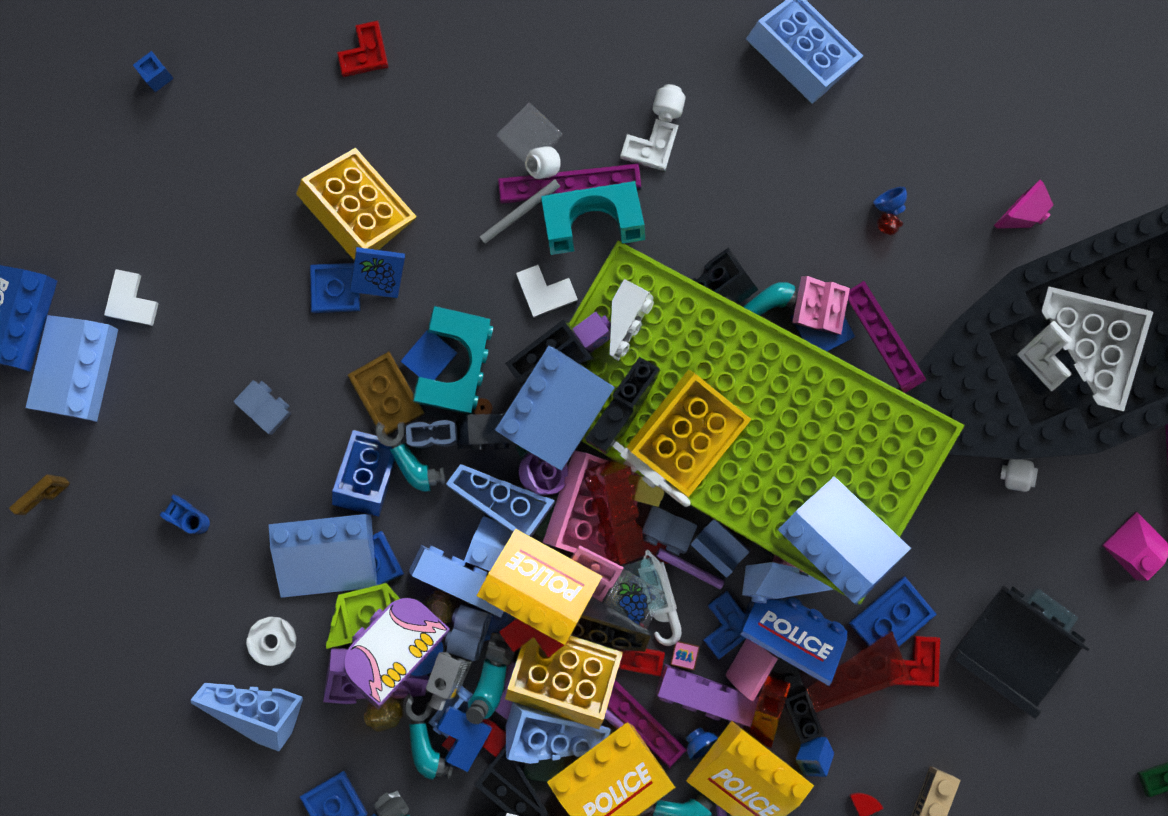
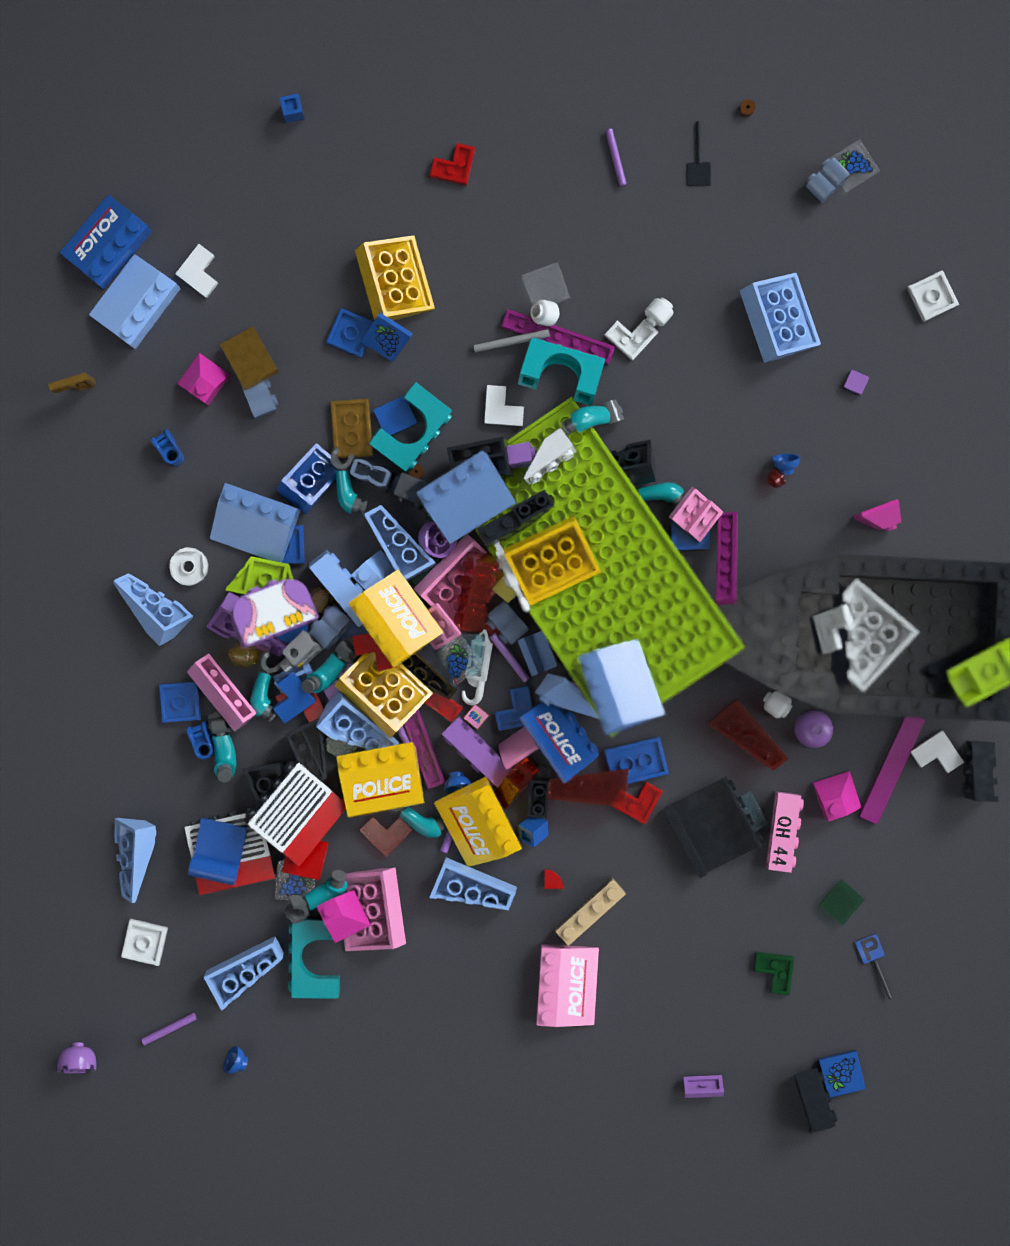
camera: 30 degrees right, 5 degrees up
(191, 418) = (203, 379): none -> dark pink slope
(232, 370) = (249, 358): none -> pearl gold tile
(377, 771) = (221, 692): none -> bright pink brick
(652, 249) = (593, 415): none -> teal piece
(922, 78) = (856, 382): none -> medium lavender tile
(999, 523) = (745, 731): none -> clear red wedge
(1073, 483) = (813, 729): none -> medium lavender cylinder
(1100, 618) = (783, 831): none -> bright pink brick

